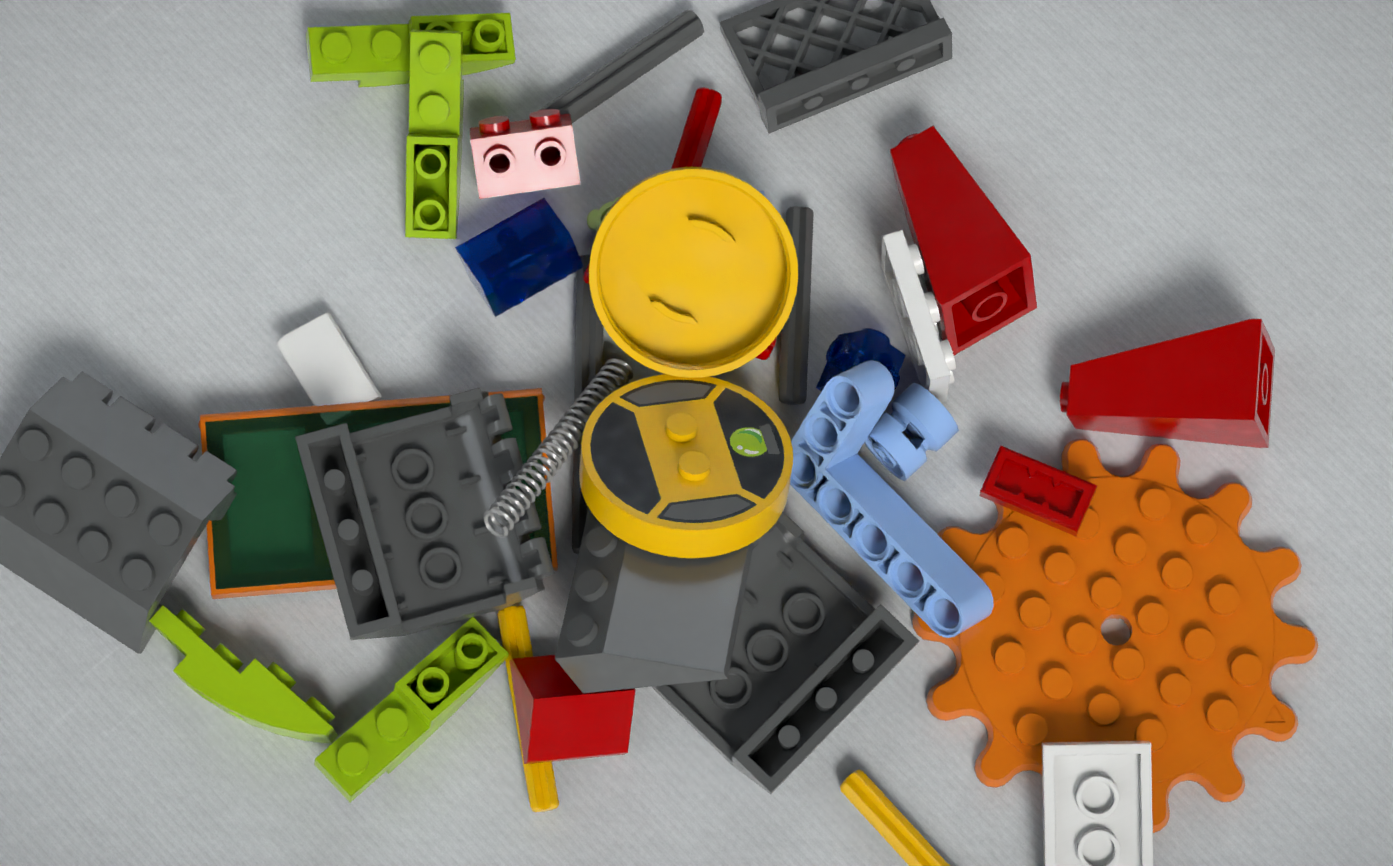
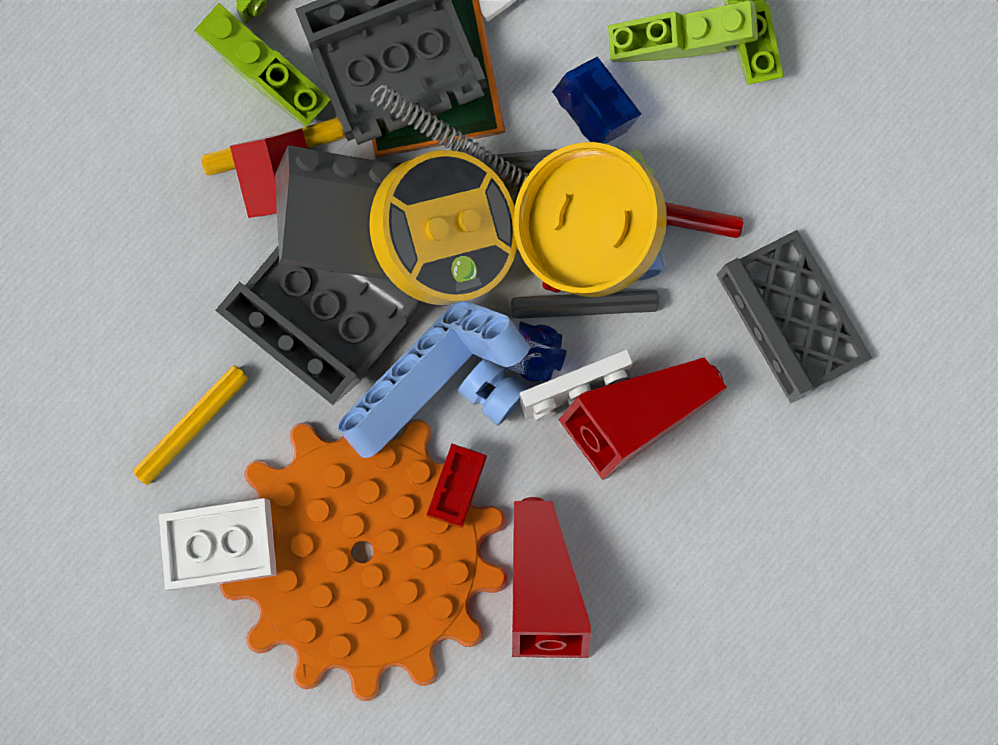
camera: 85 degrees right, 5 degrees up
(524, 154) = (673, 97): brick -> none
(628, 66) = (748, 160): dark grey axle -> none

